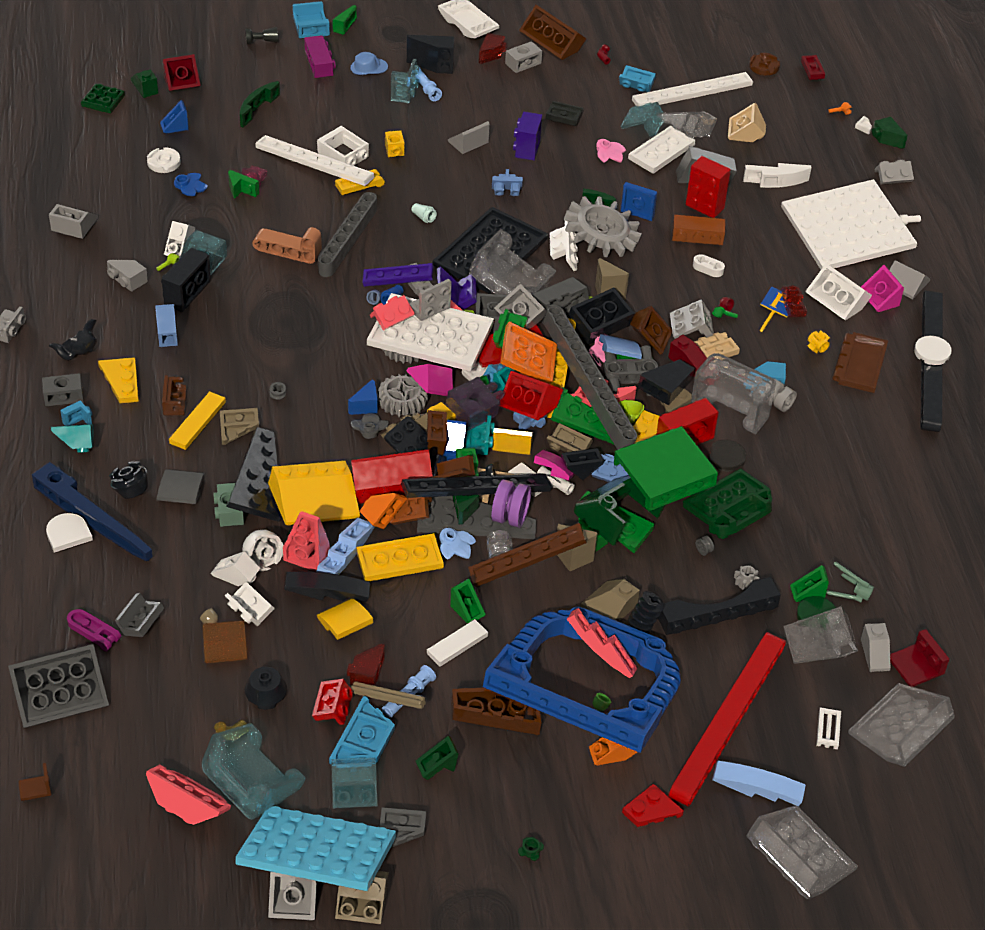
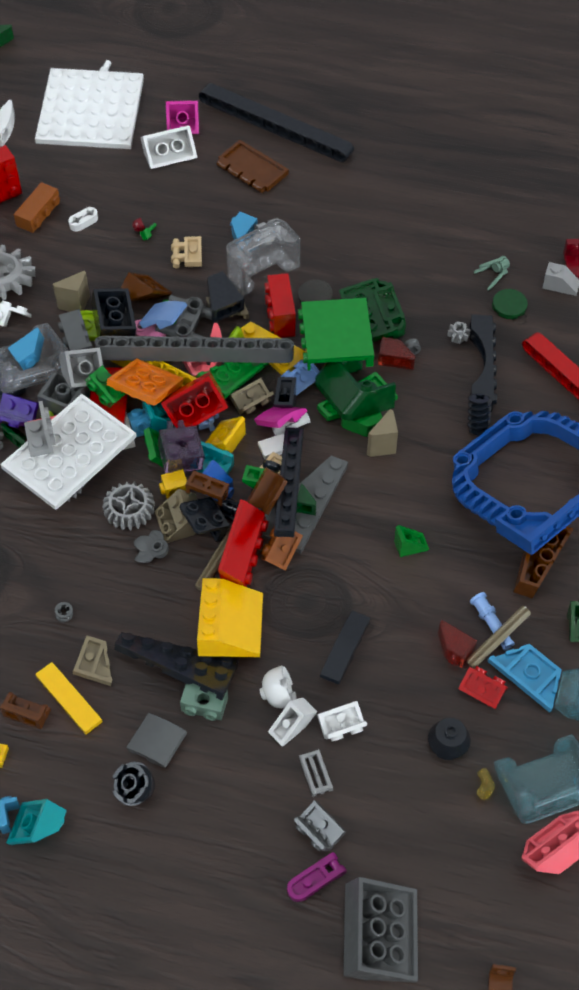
camera: 65 degrees left, 10 degrees up
(63, 492) = (133, 851): dark blue piece -> none
(67, 531) = (168, 869): white tile -> none
(195, 606) = (321, 789): none -> light grey tile
(209, 616) = (342, 763): dark tan hinge -> none
(224, 641) = (377, 758): clear orange slope -> none
(307, 542) = (302, 643): coral wedge -> none
(345, 549) = (302, 617): light blue slope -> none
(345, 618) = (387, 645): yellow slope -> none
(364, 400) = (119, 536): blue slope -> none
(382, 508) = (273, 568): orange slope -> none
(393, 312) = (34, 470): coral bracket -> none
(399, 557) = (332, 577): yellow plate -> none
(432, 378) = (124, 472): dark pink slope -> none
(457, 545) = (332, 527): light blue plate -> none
(457, 643) = (448, 565): white tile -> none
(498, 543) = (358, 493): clear wheel -> none
(511, 503) = (324, 461): medium lavender wheel -> none
(523, 271) = (28, 349): none -> dark azure slope
(527, 555) = (387, 471): reddish brown plate -> none
(601, 702) = (553, 481): bright green hinge -> none
(607, 648) = (503, 454): coral slope -> none
(613, 599) = (445, 433): dark tan slope -> none
(686, 351) = (193, 273): dark red slope -> none
(686, 531) = (395, 354): none -> clear red slope
(692, 318) = (147, 256): light grey bracket -> none
(774, 302) = (155, 190): blue piece -> none
(793, 302) = (157, 179): clear red slope -> none
(810, 585) = (484, 293): green slope -> none
(818, 341) = (220, 182): yellow gear -> none
(821, 637) = (540, 308): clear slope -> none
(895, 172) = (45, 53): light grey bracket -> none
(909, 278) = (180, 93): light grey slope -> none
(932, 350) = (274, 114): white tile -> none

